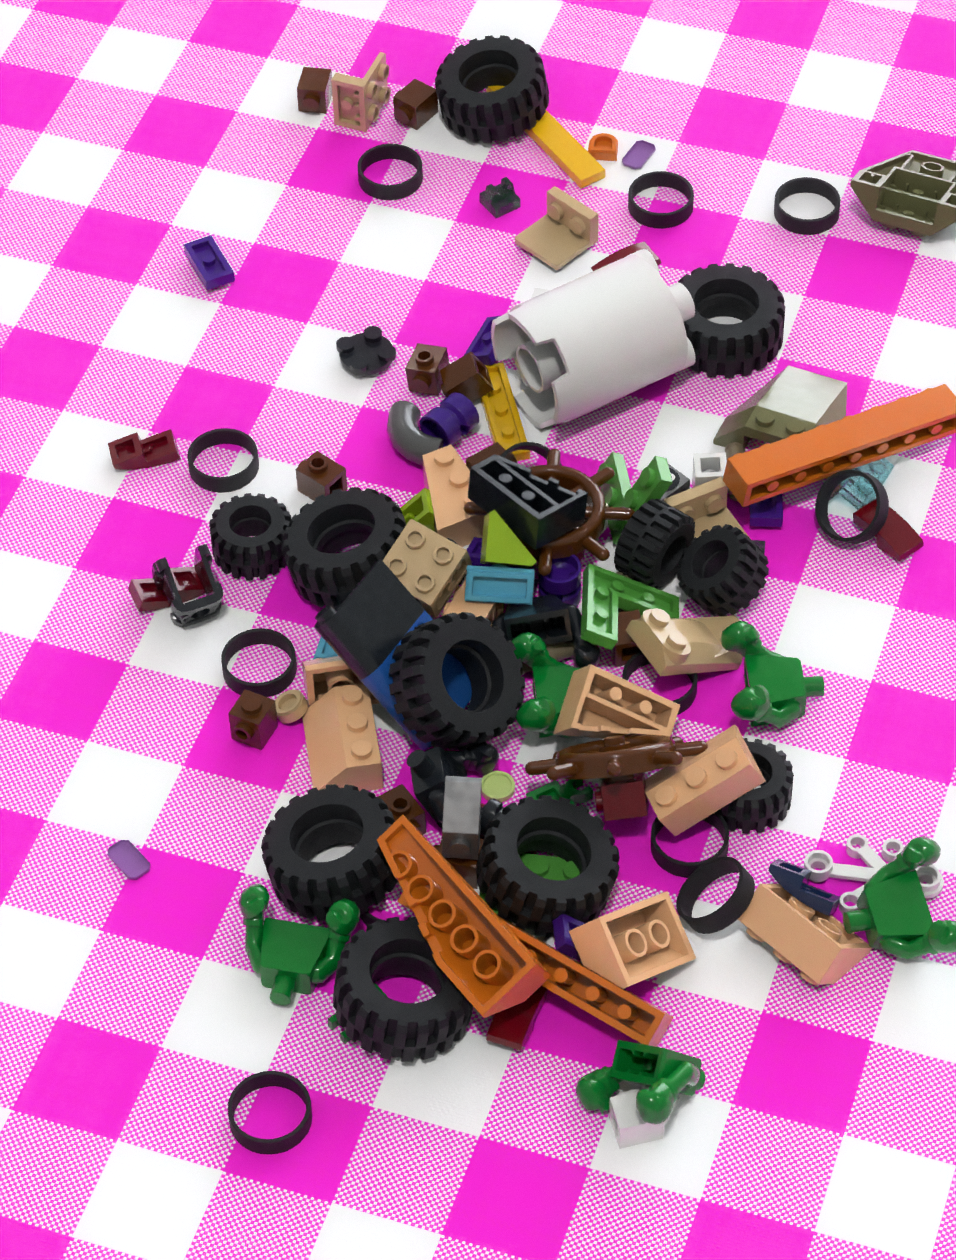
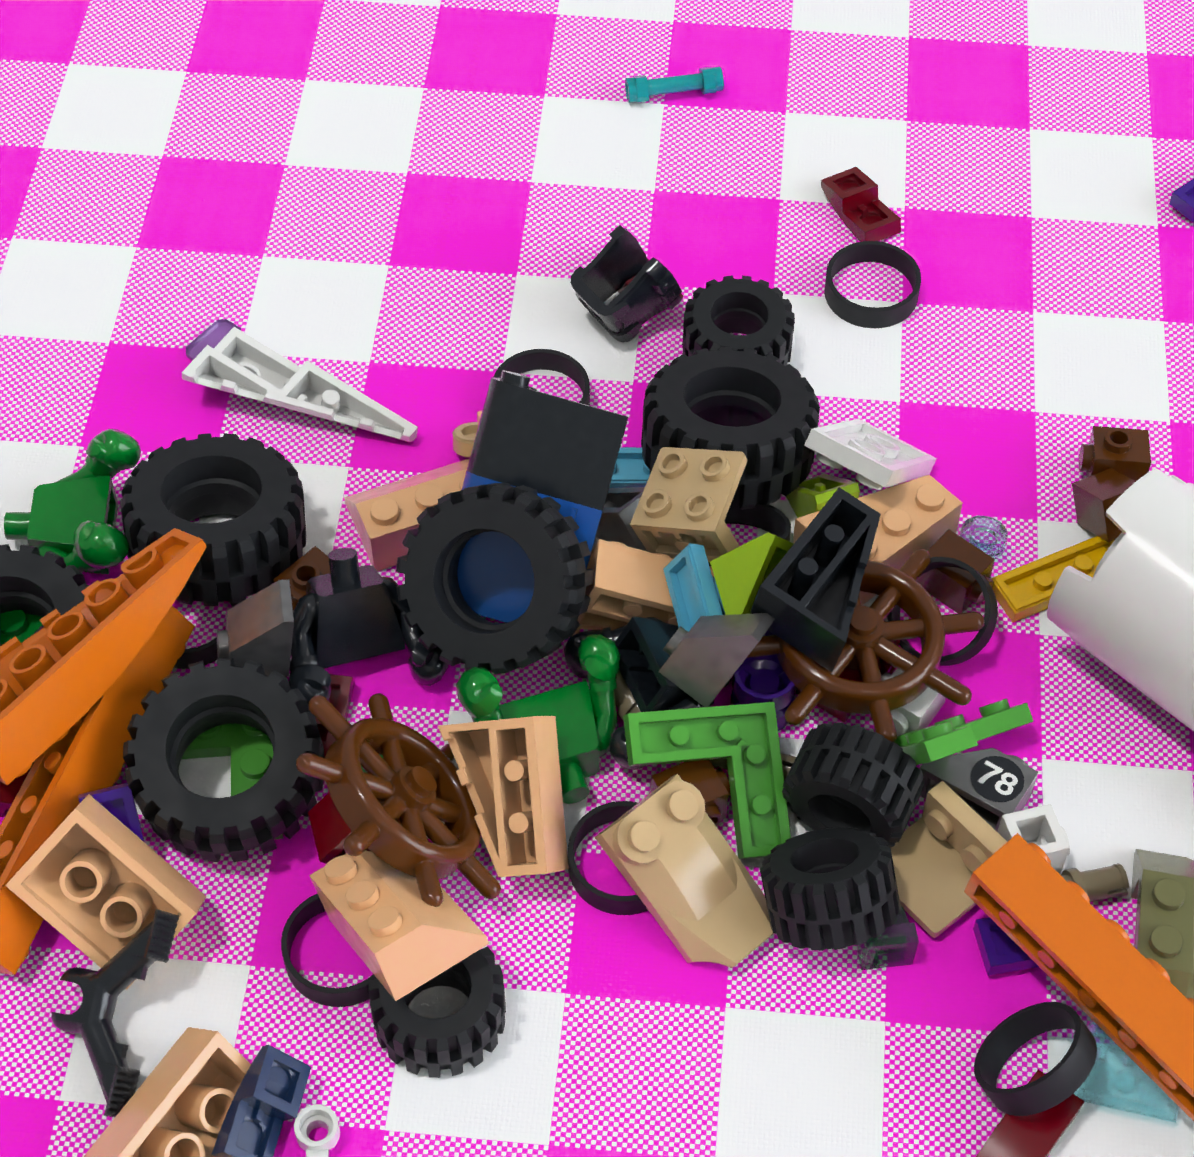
camera: 75 degrees right, 5 degrees up
(181, 829) = (259, 373): none -> white wedge
(253, 719) = (434, 401): reddish brown brick -> none
(320, 476) = (868, 386): reddish brown brick -> none
(366, 352) = (1126, 388): black piece -> none
(402, 476) = (870, 452): none -> white plate
(406, 435) = (983, 461): dark grey cylinder -> none
(450, 420) = (1025, 502): dark purple wheel -> none
(468, 446) = (985, 534): none -> clear light blue tile
(498, 786) = (403, 694): yellowish green piece -> none
(555, 573) = (712, 652): none -> flat silver slope
(700, 963) = (99, 1002): none -> black piece
(729, 911) = (219, 1013): black tyre -> none
(773, 683) = (643, 1008): green torso -> none

